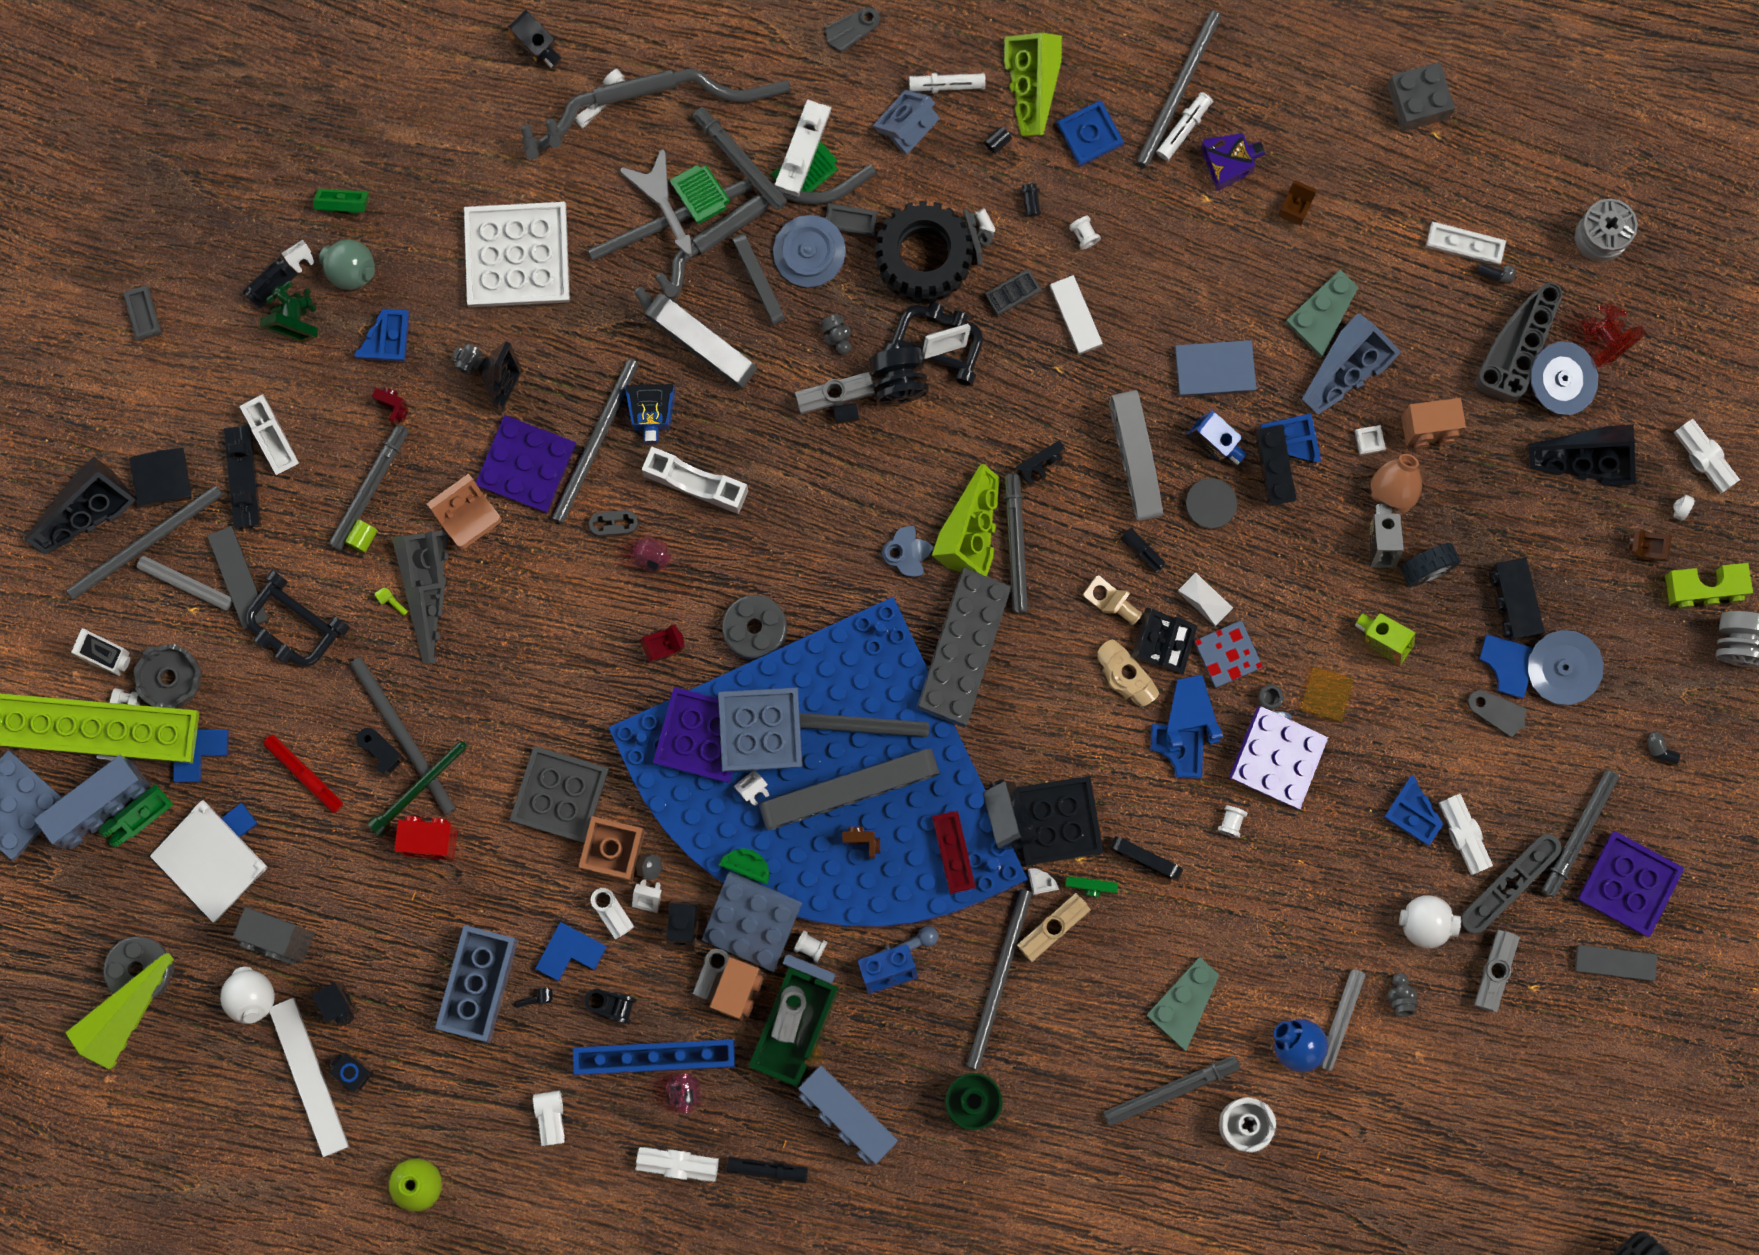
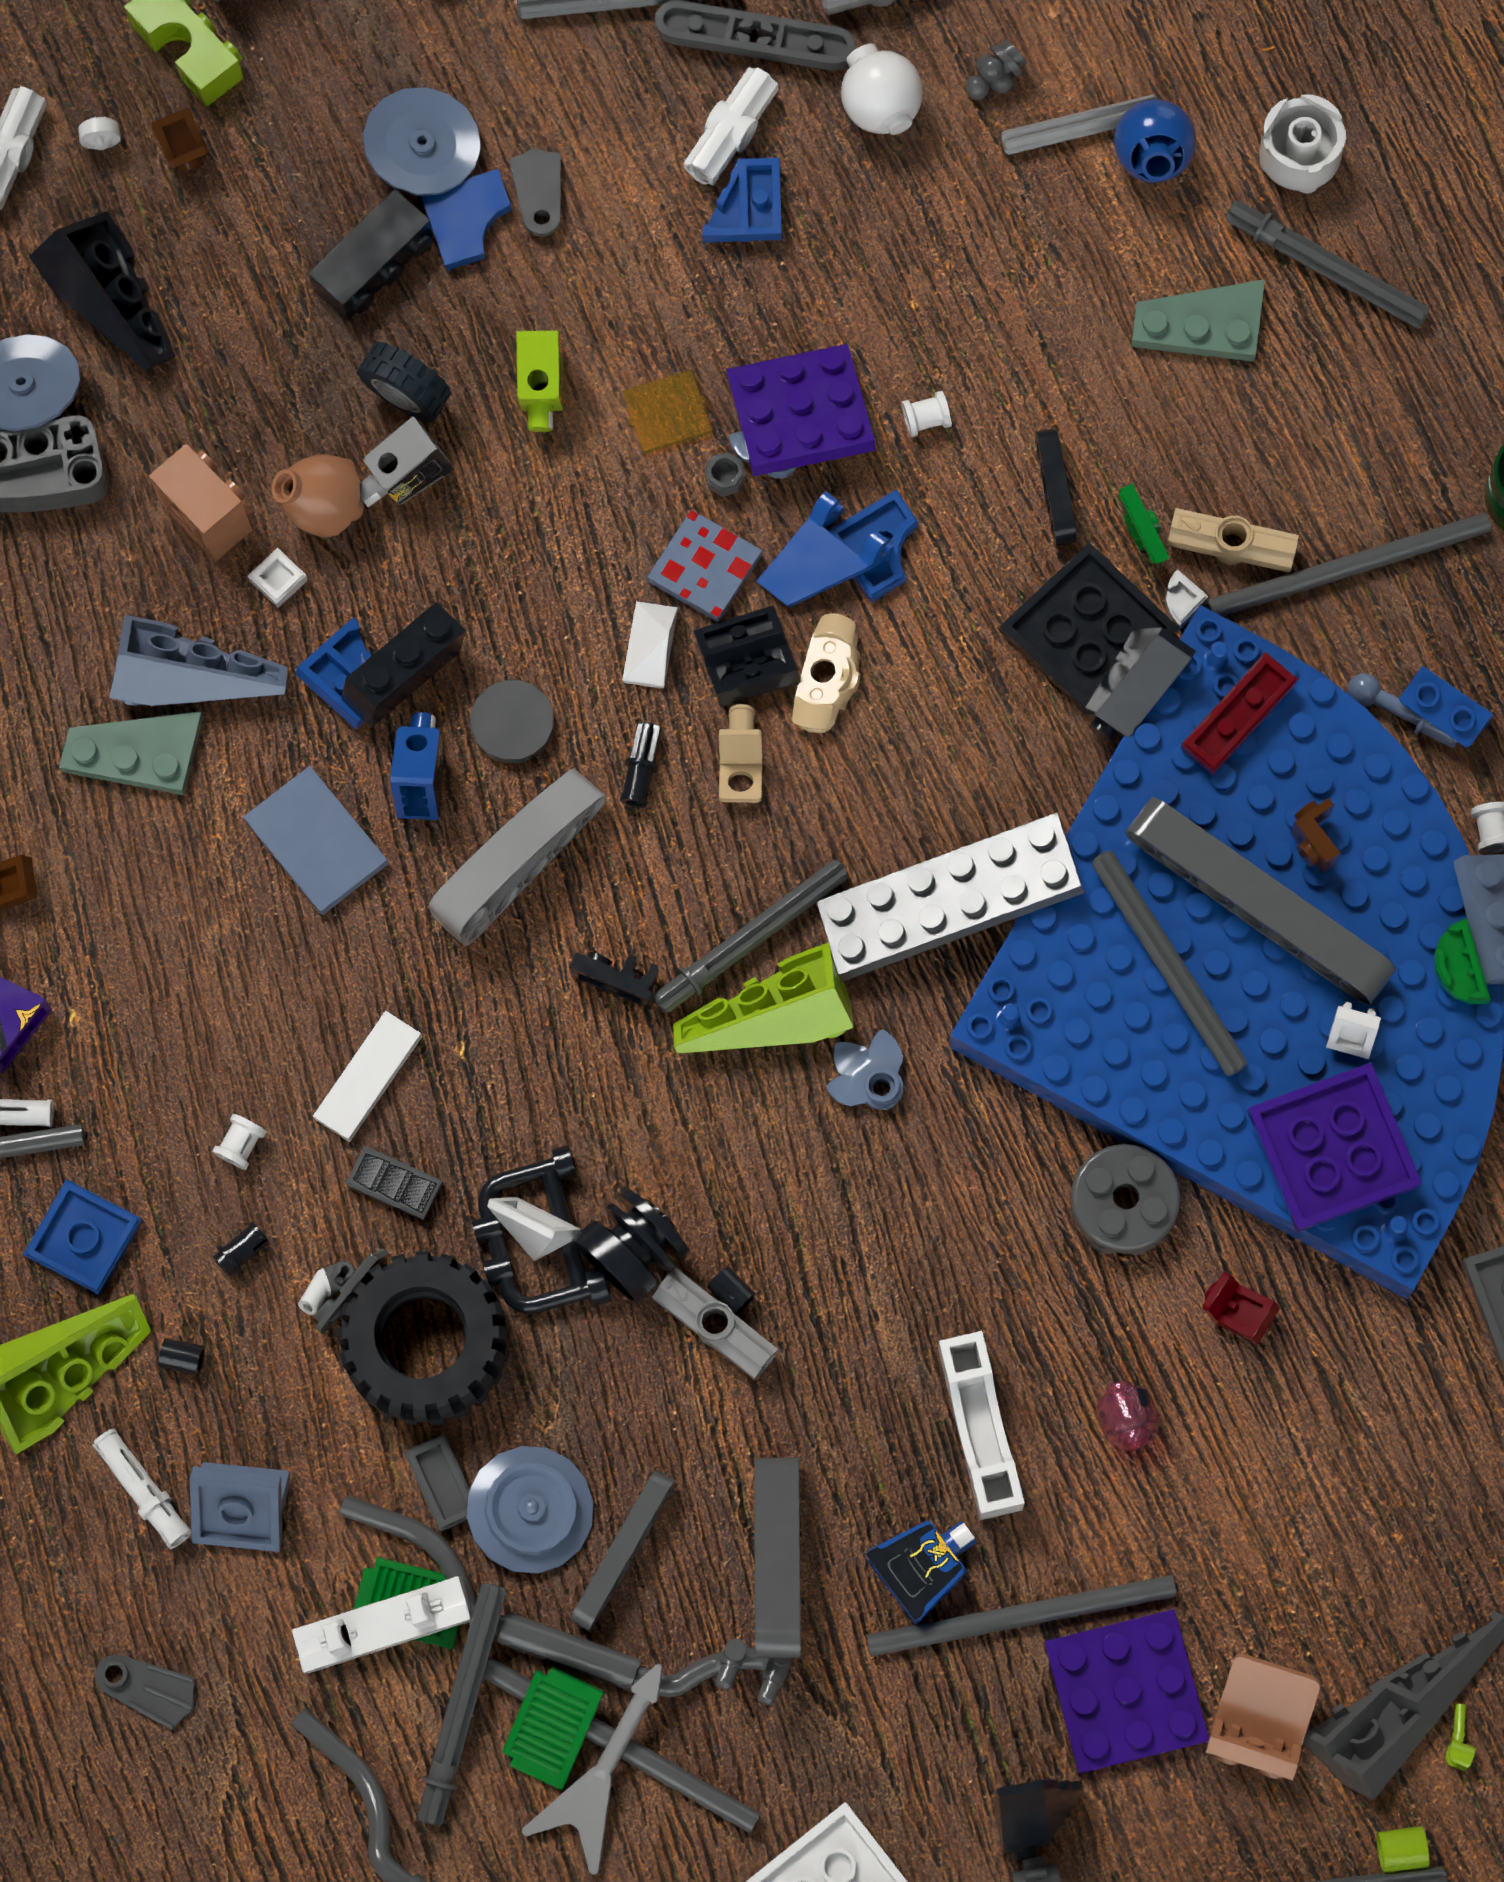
camera: 120 degrees left, 5 degrees down
(613, 517) = (1128, 1495): dark grey beam -> none
(760, 729) = (1272, 1066): sand blue plate -> none
(836, 333) = (624, 1385): dark grey piece -> none

